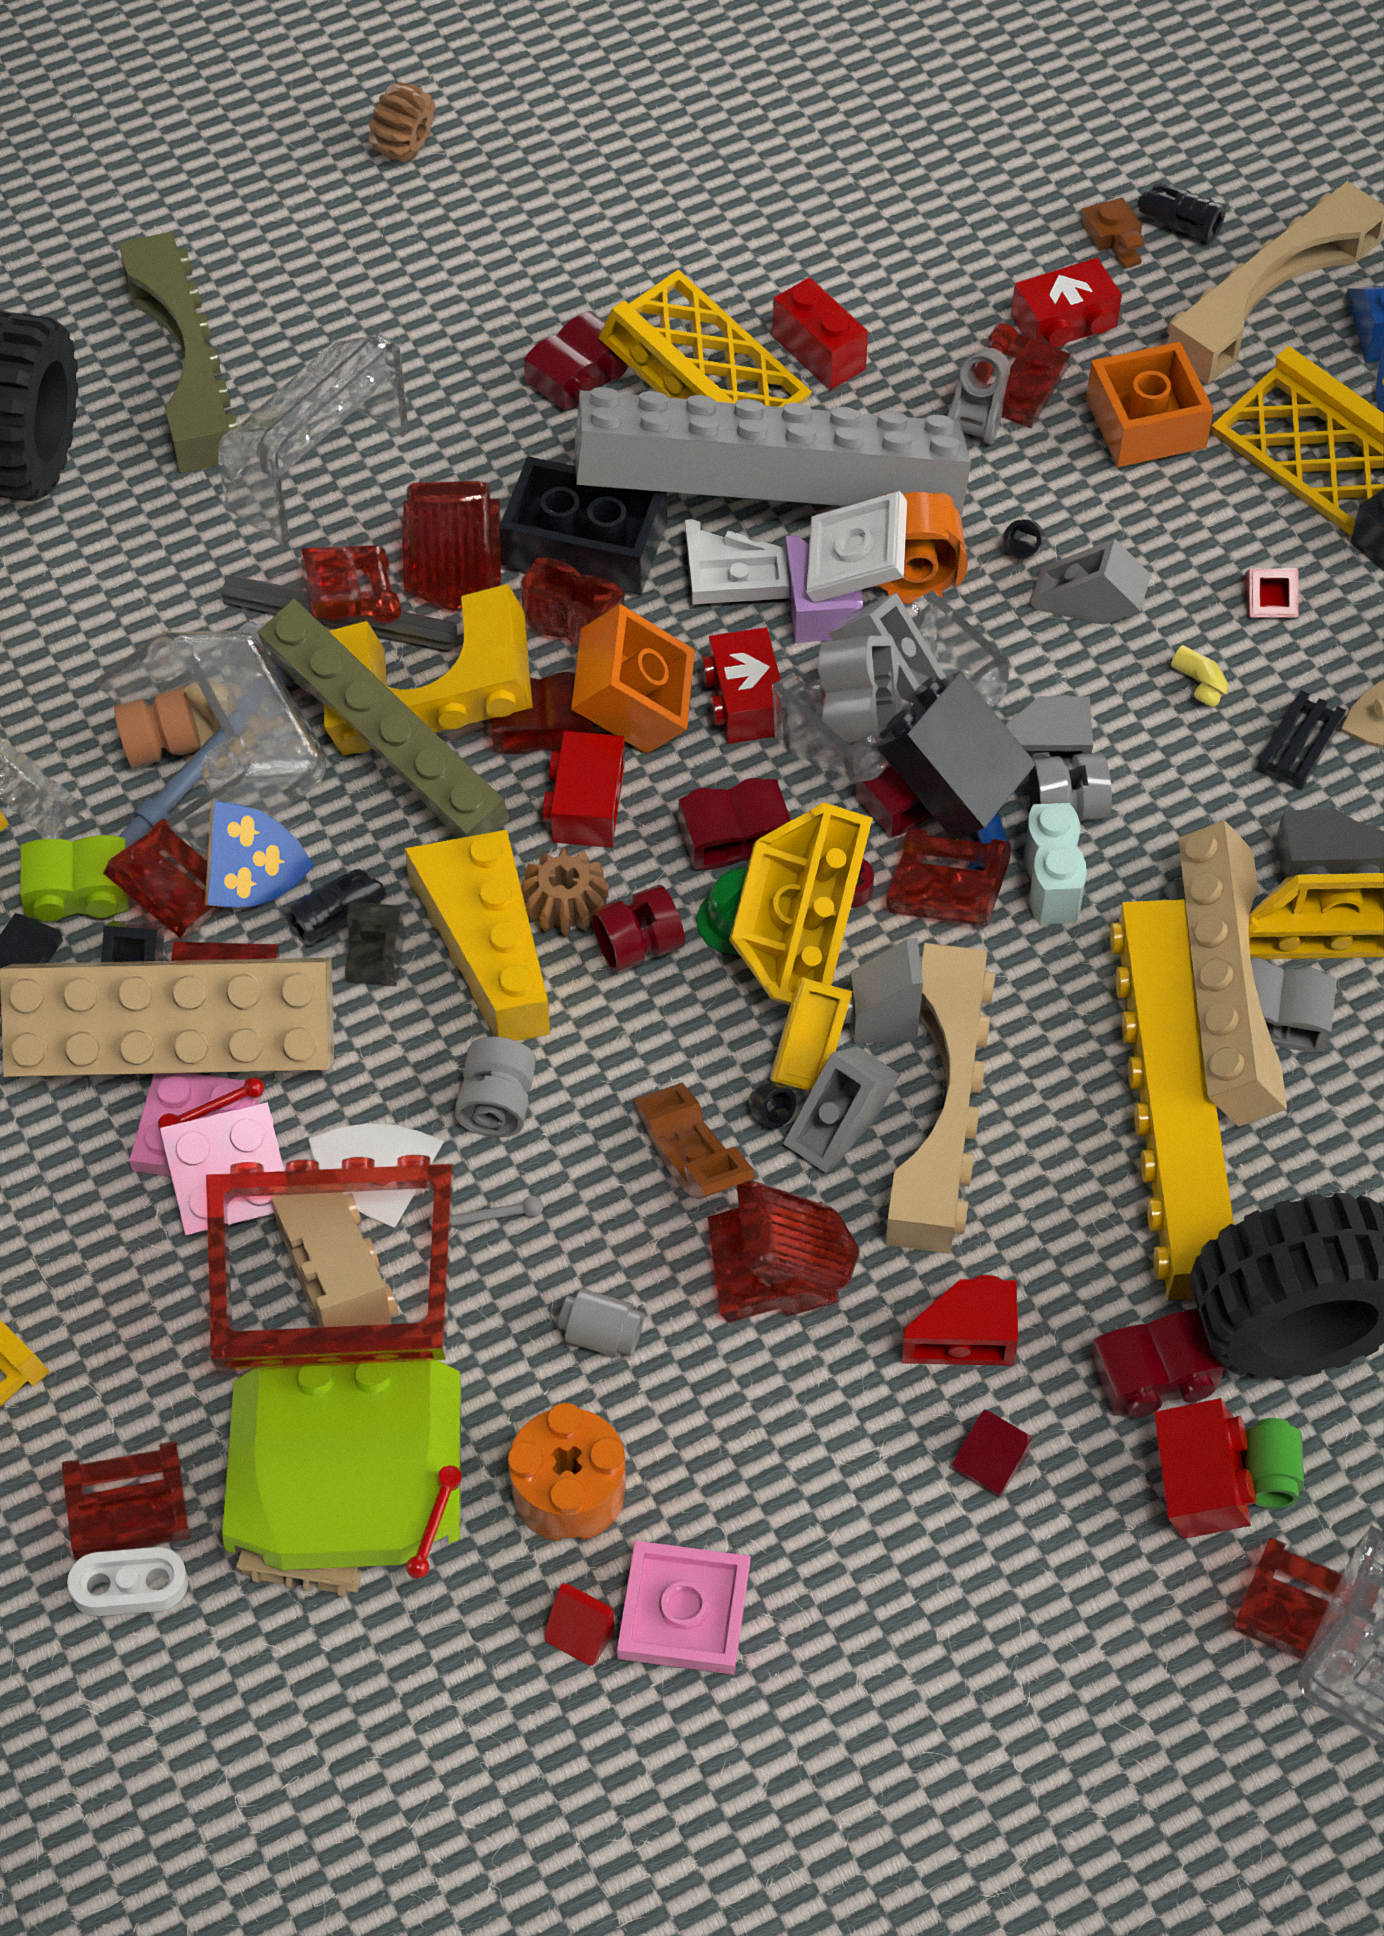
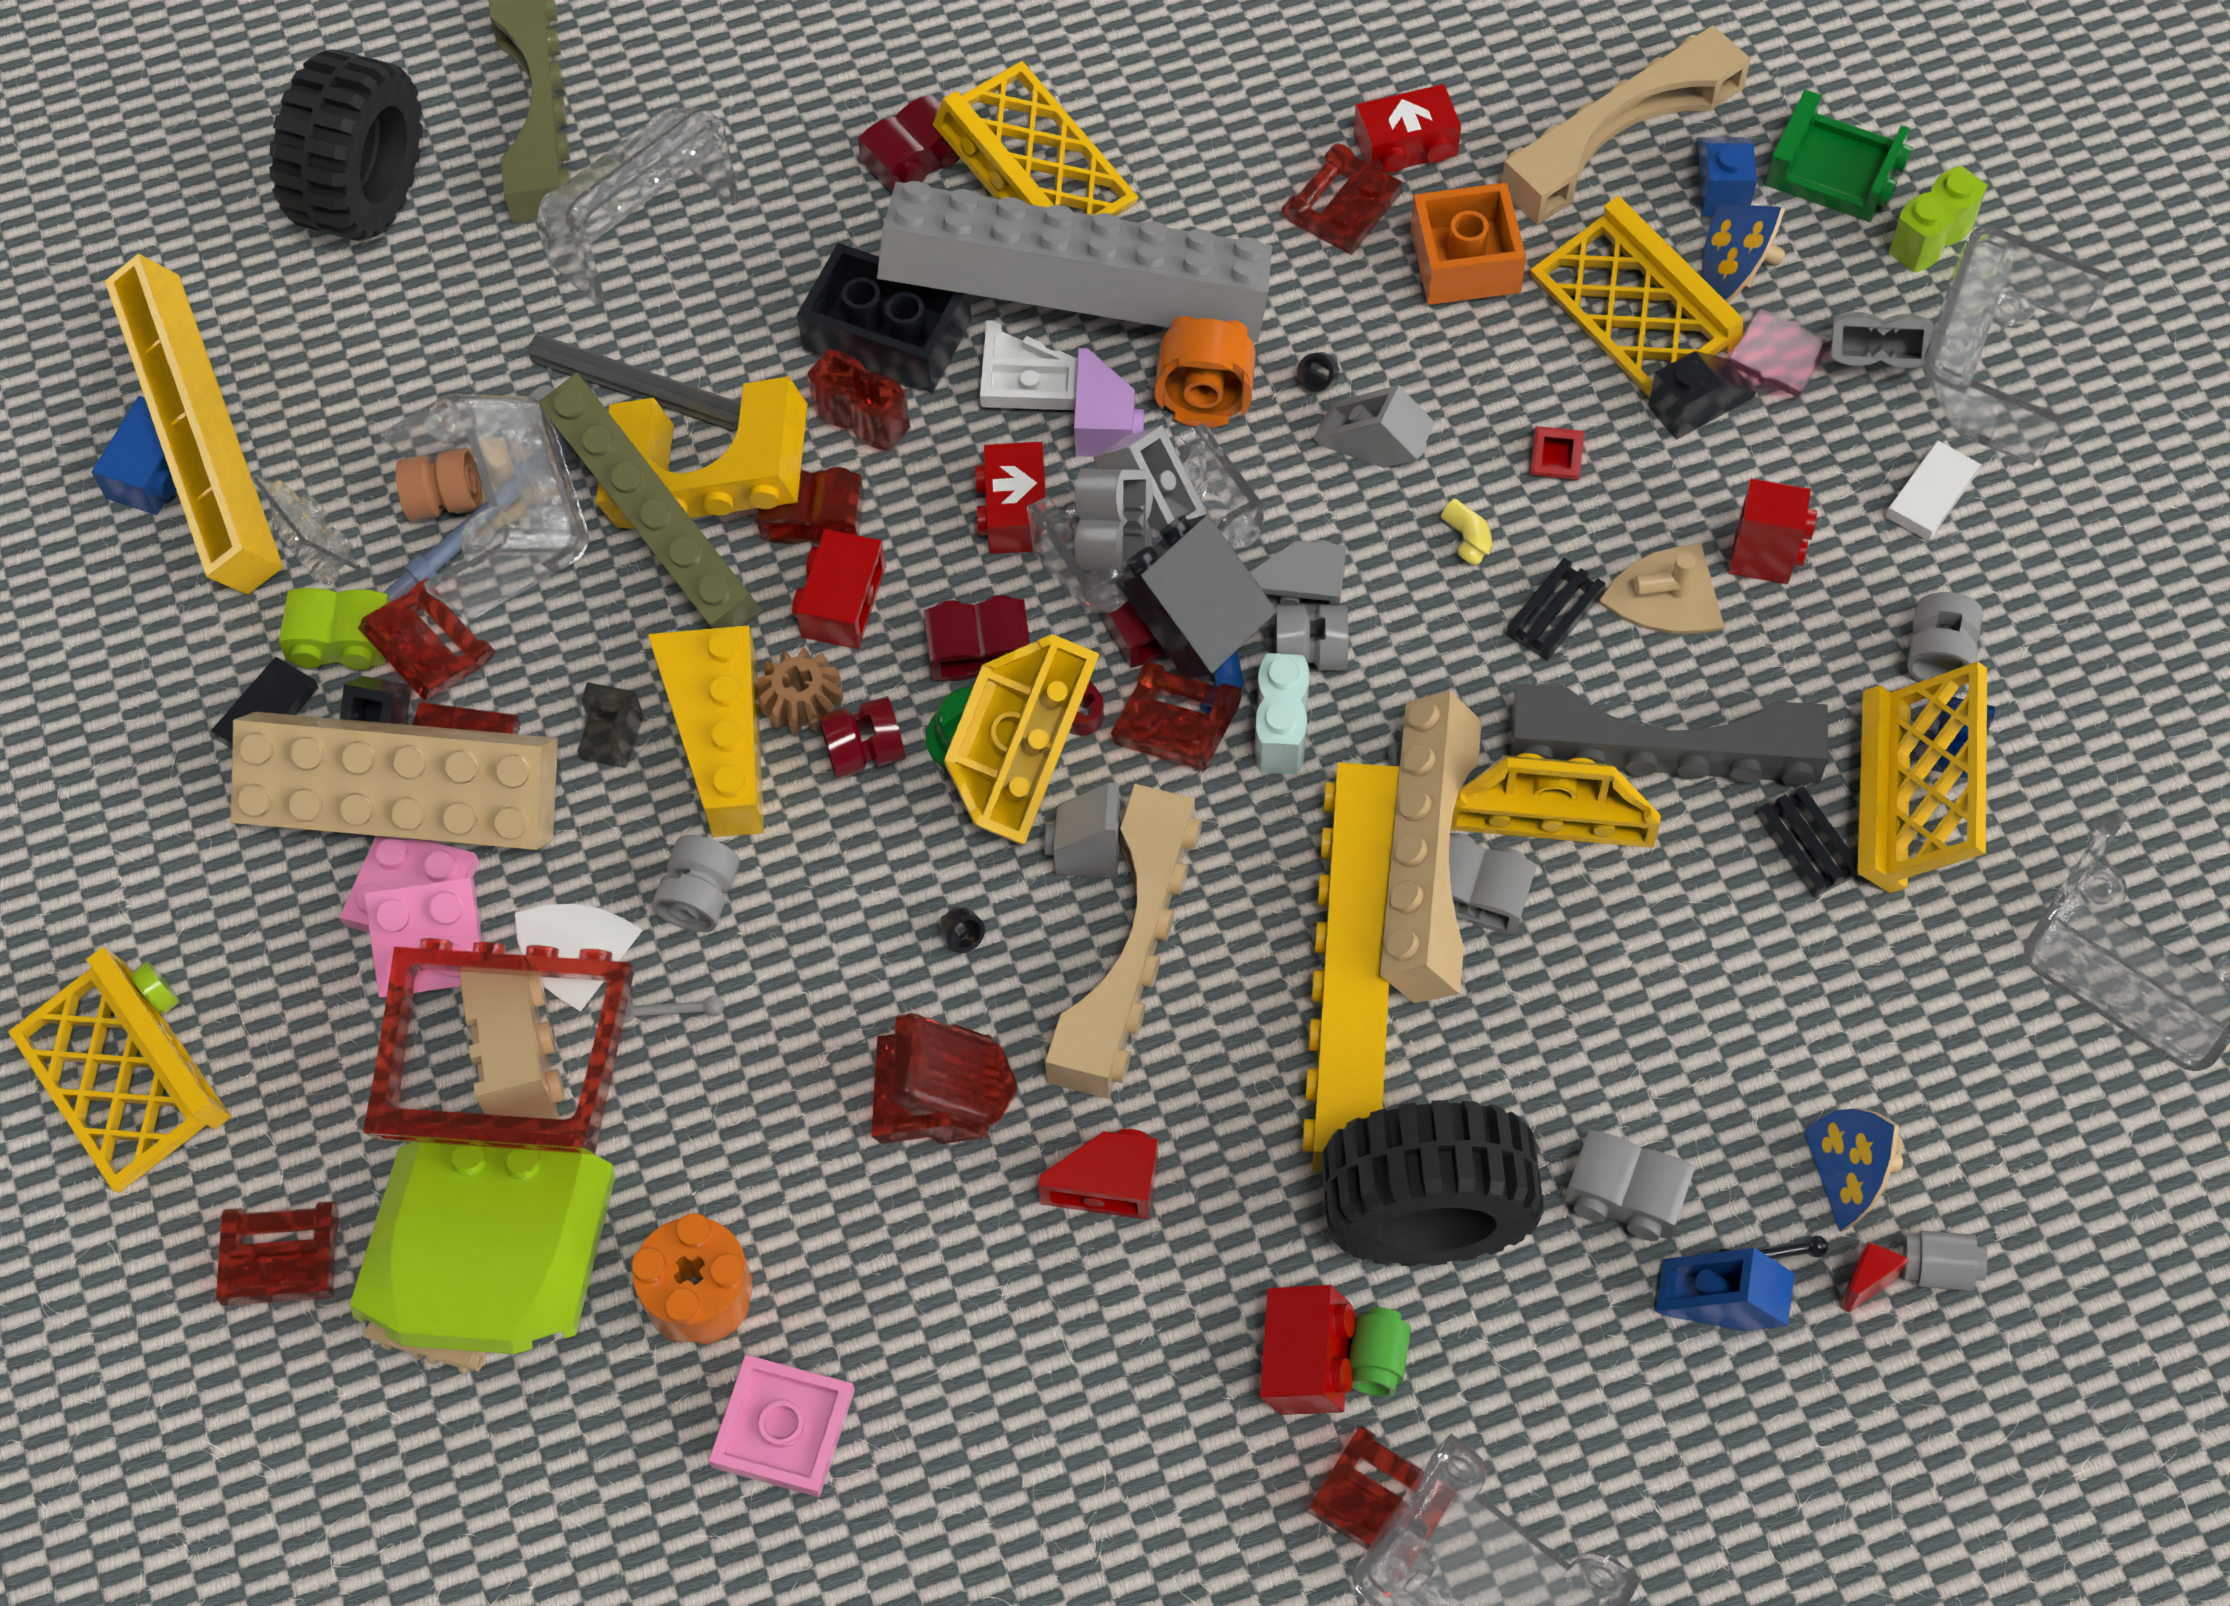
camera: 10 degrees right, 5 degrees up
(129, 1579) = (267, 1334): white plate -> none
(250, 857) = (502, 626): shield -> none
(252, 1088) = (464, 859): red hinge -> none
(327, 907) = (564, 685): black hinge -> none
(335, 587) = (632, 354): clear red plate -> none
(448, 1480) = (570, 1278): red hinge -> none
(450, 541) = (753, 322): clear red piece -> none
(579, 1624) = (680, 1431): red slope -> none
(601, 1323) = (754, 1132): light grey brick -> none
(633, 679) = (900, 482): orange brick -> none
(688, 1145) = (870, 961): dark orange slope -> none
(810, 1033) = (1007, 865): yellow tile -> none
(819, 333) = (1155, 138): red brick -> none
(841, 1107) = (1026, 939): light grey slope -> none
(857, 547) = (1140, 369): white tile -> none
(980, 404) = (1295, 227): light grey piece -> none
(992, 1453) = (1107, 1308): dark red slope -> none
(1116, 227) = (1473, 50): dark orange plate -> none
(1156, 1364) = (1281, 1238): dark red brick -> none
(1183, 211) = (1545, 40): black hinge -> none

